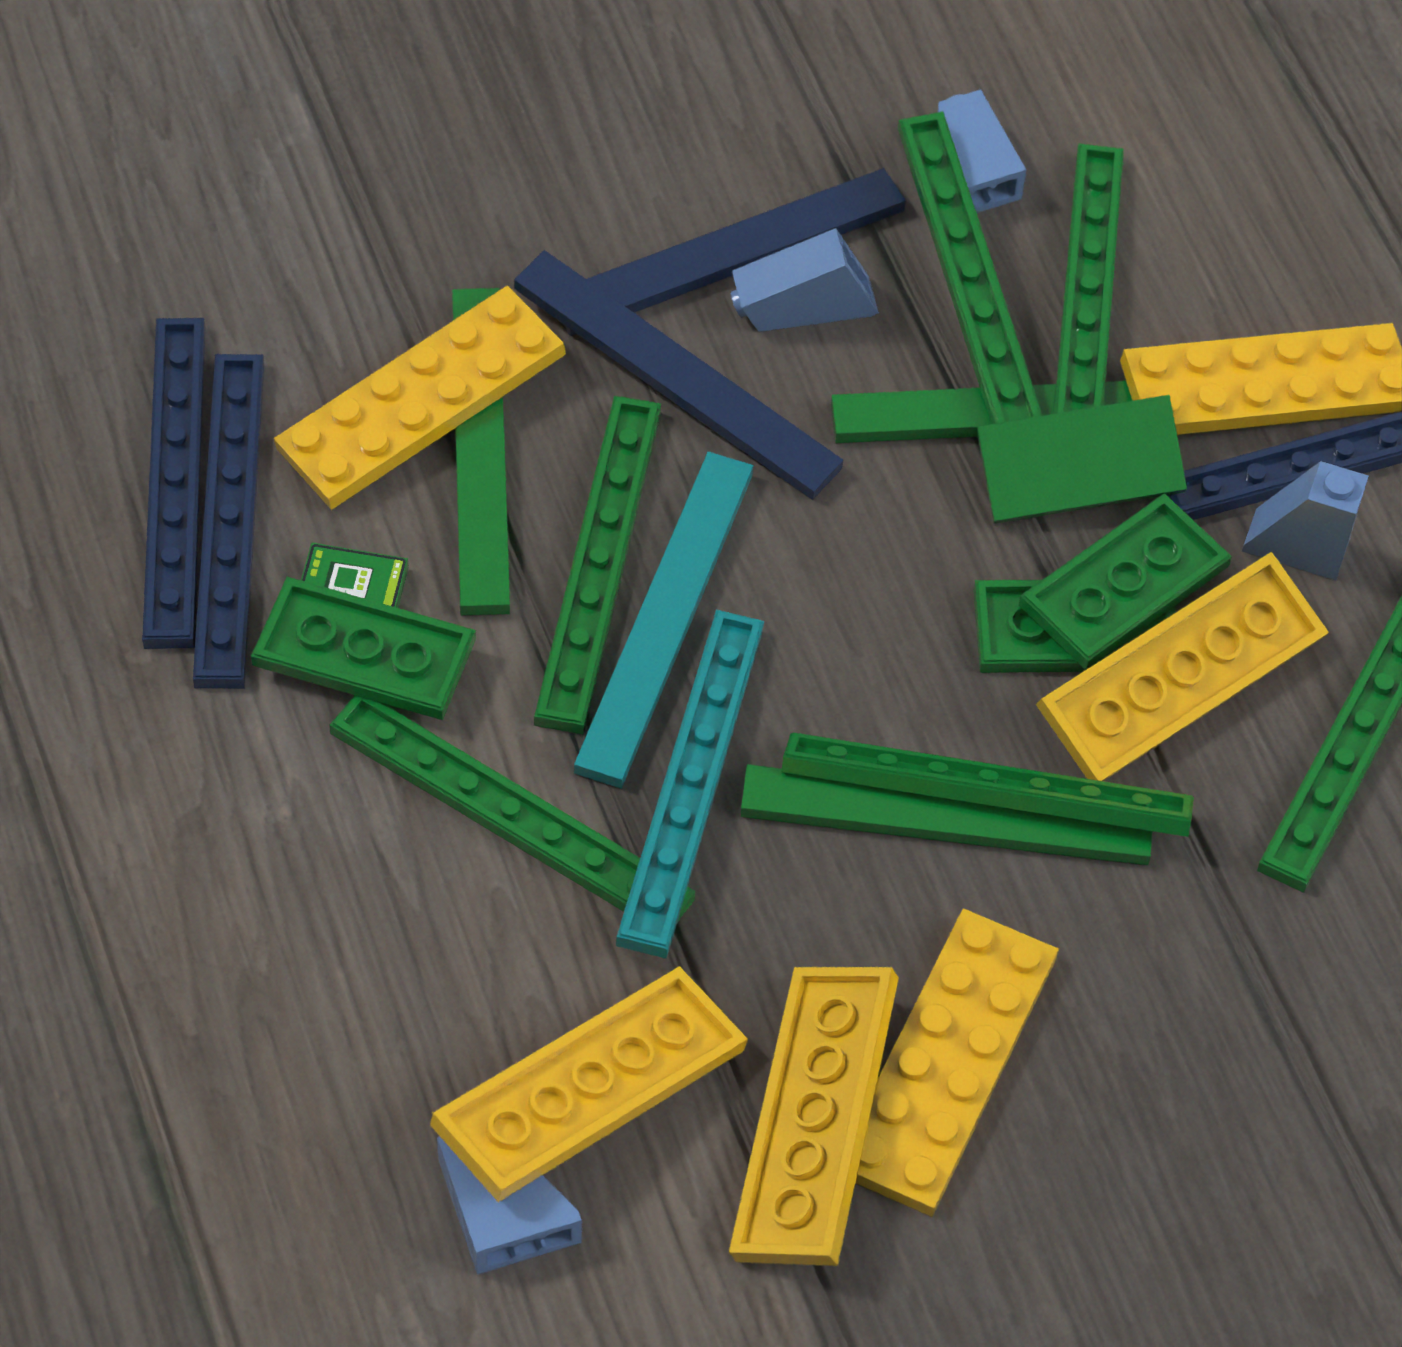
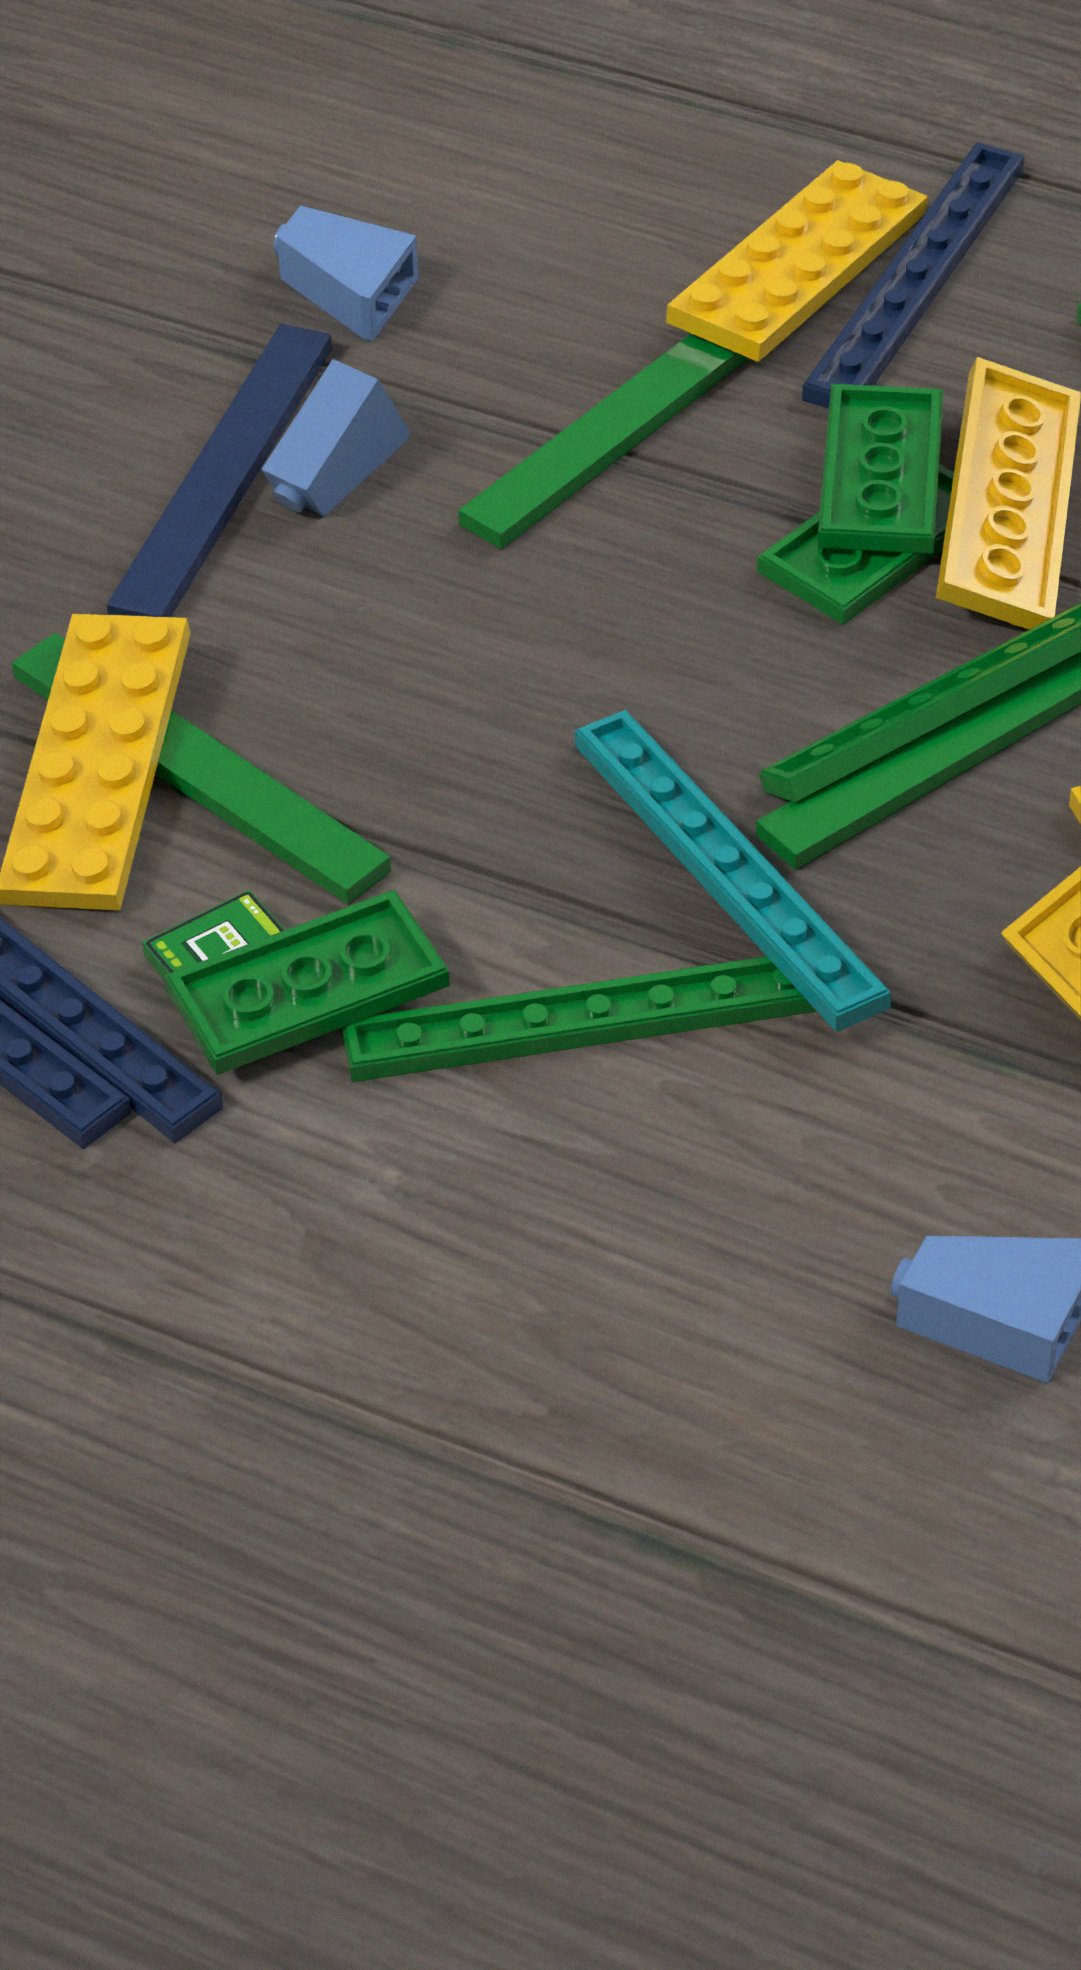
camera: 40 degrees left, 10 degrees down
(587, 1083) = (968, 1142): yellow plate -> none
(597, 566) = (424, 779): green tile -> none
(663, 621) = (538, 776): teal tile -> none
(678, 374) = (306, 583): dark blue tile -> none
(968, 269) = (474, 339): green tile -> none
(1081, 459) = (734, 405): green tile -> none
(1089, 278) = (573, 298): green tile -> none
(1309, 520) = (975, 313): medium blue slope -> none

